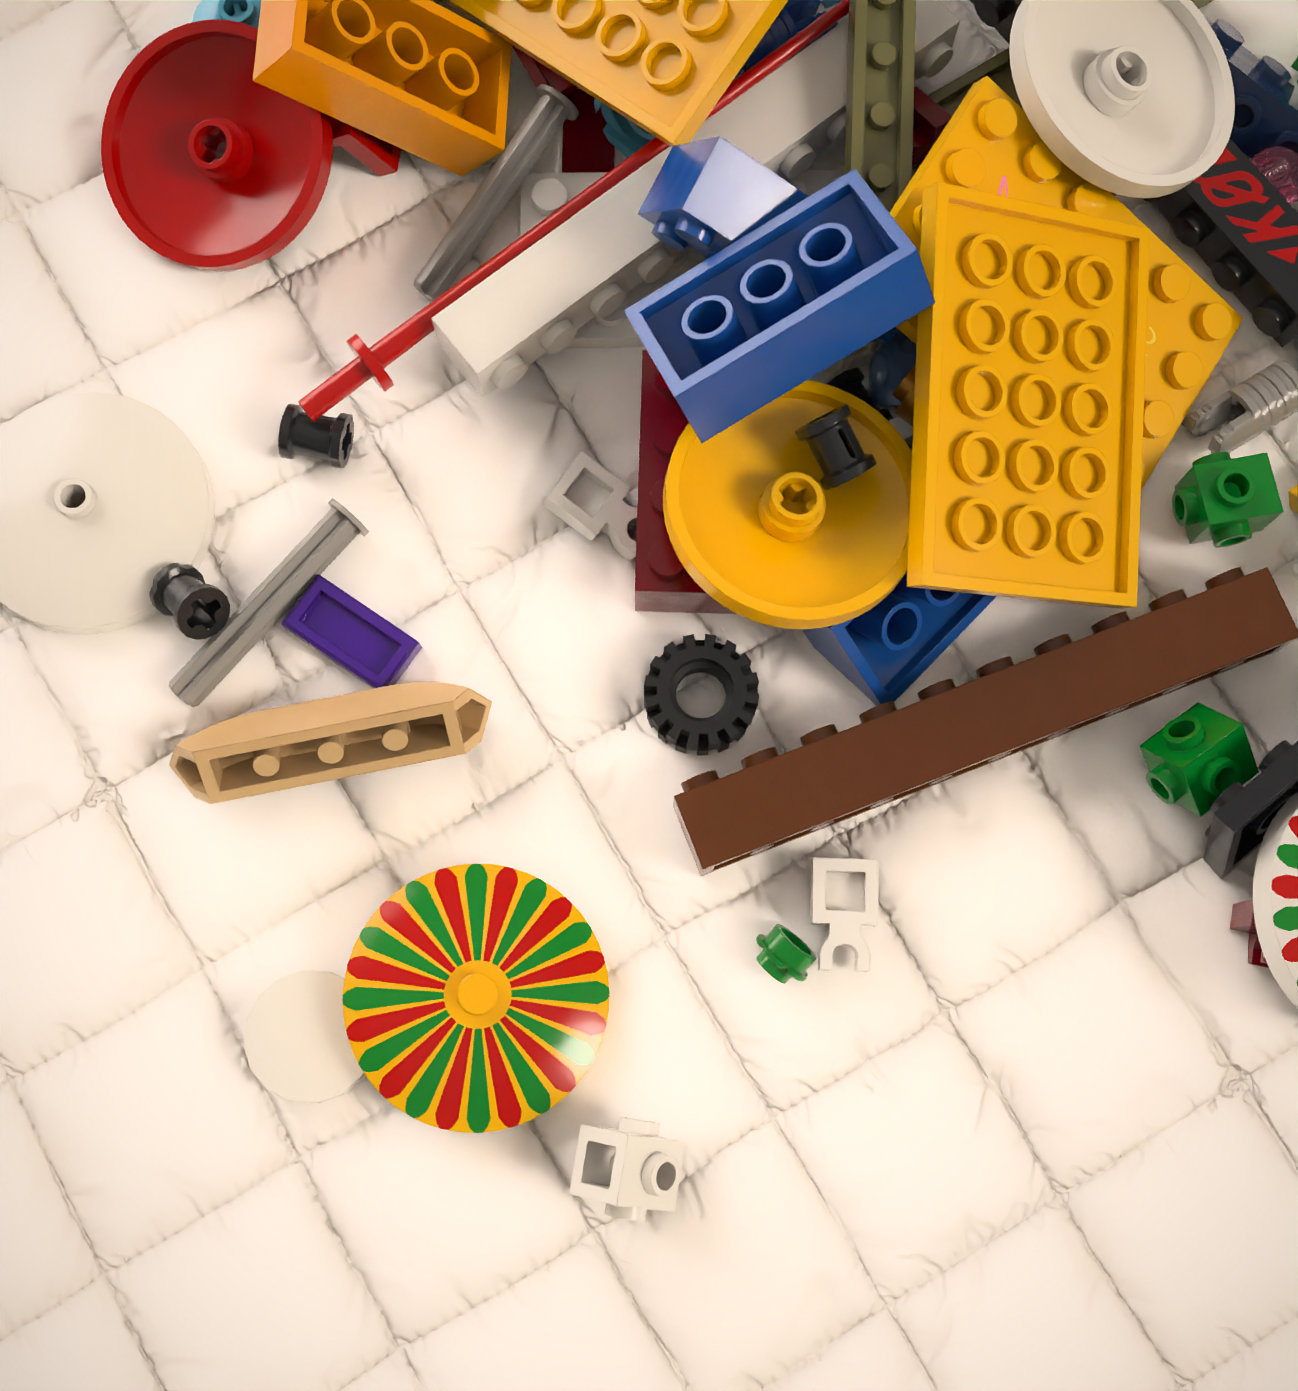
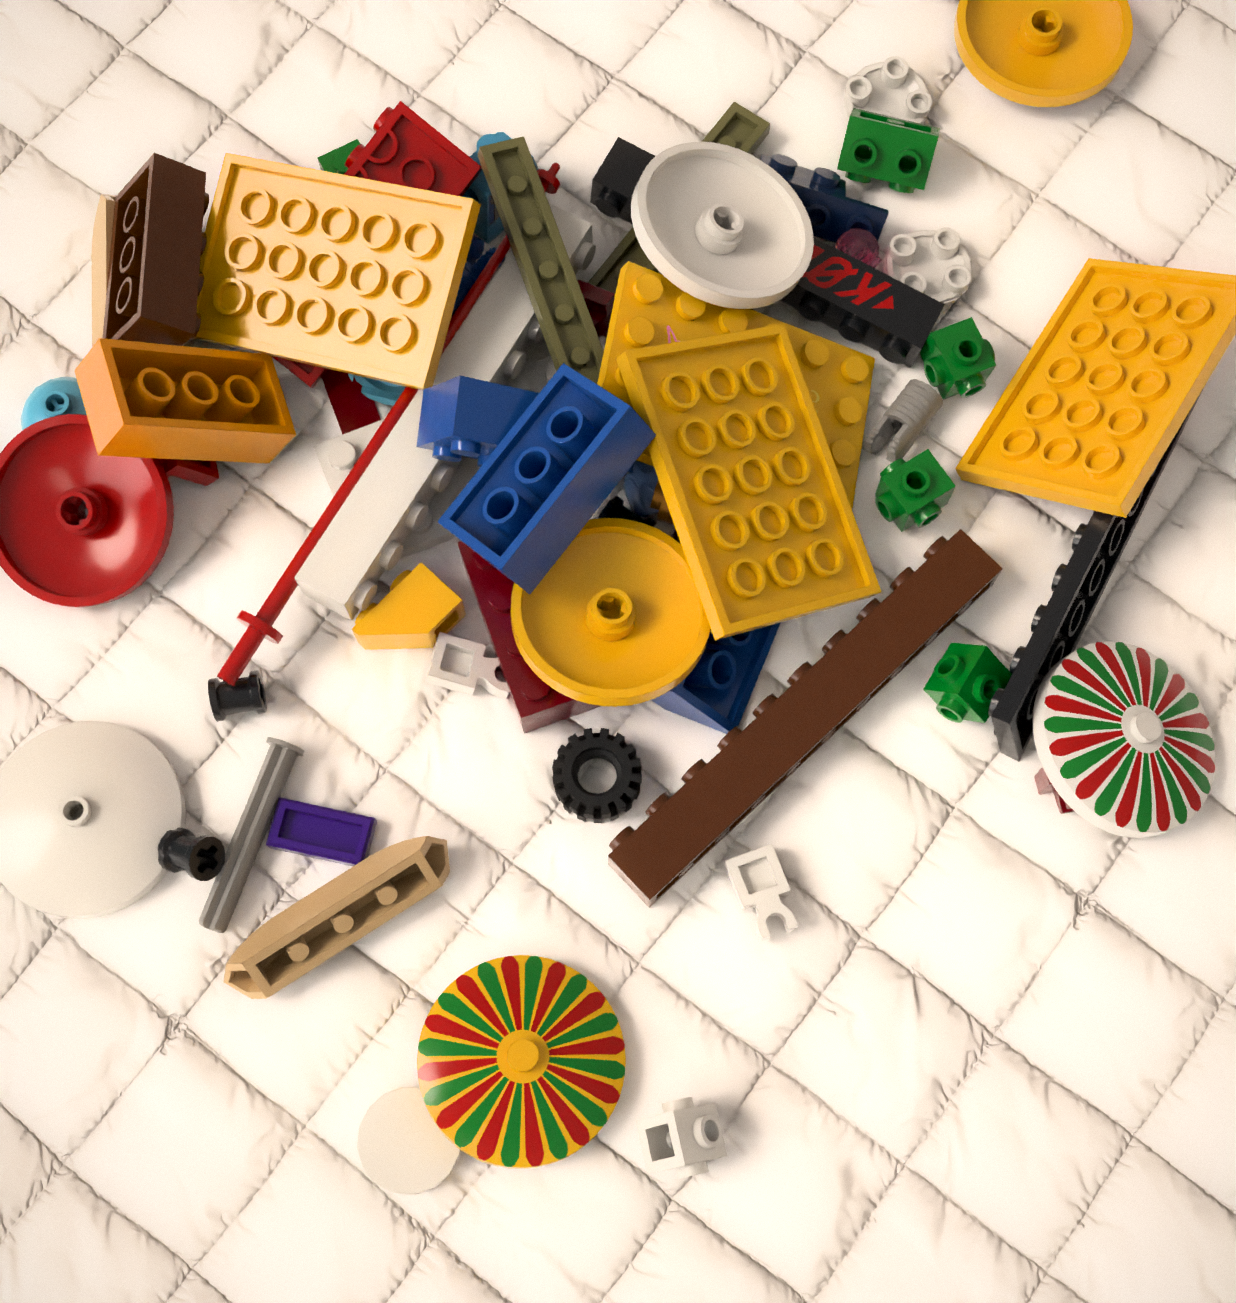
camera: 20 degrees left, 5 degrees down
(495, 191) = (300, 468): light grey axle -> none
(555, 415) = (410, 613): none -> yellow slope
(784, 954) = (732, 939): green plate -> none
(835, 447) = (625, 560): black bush -> none

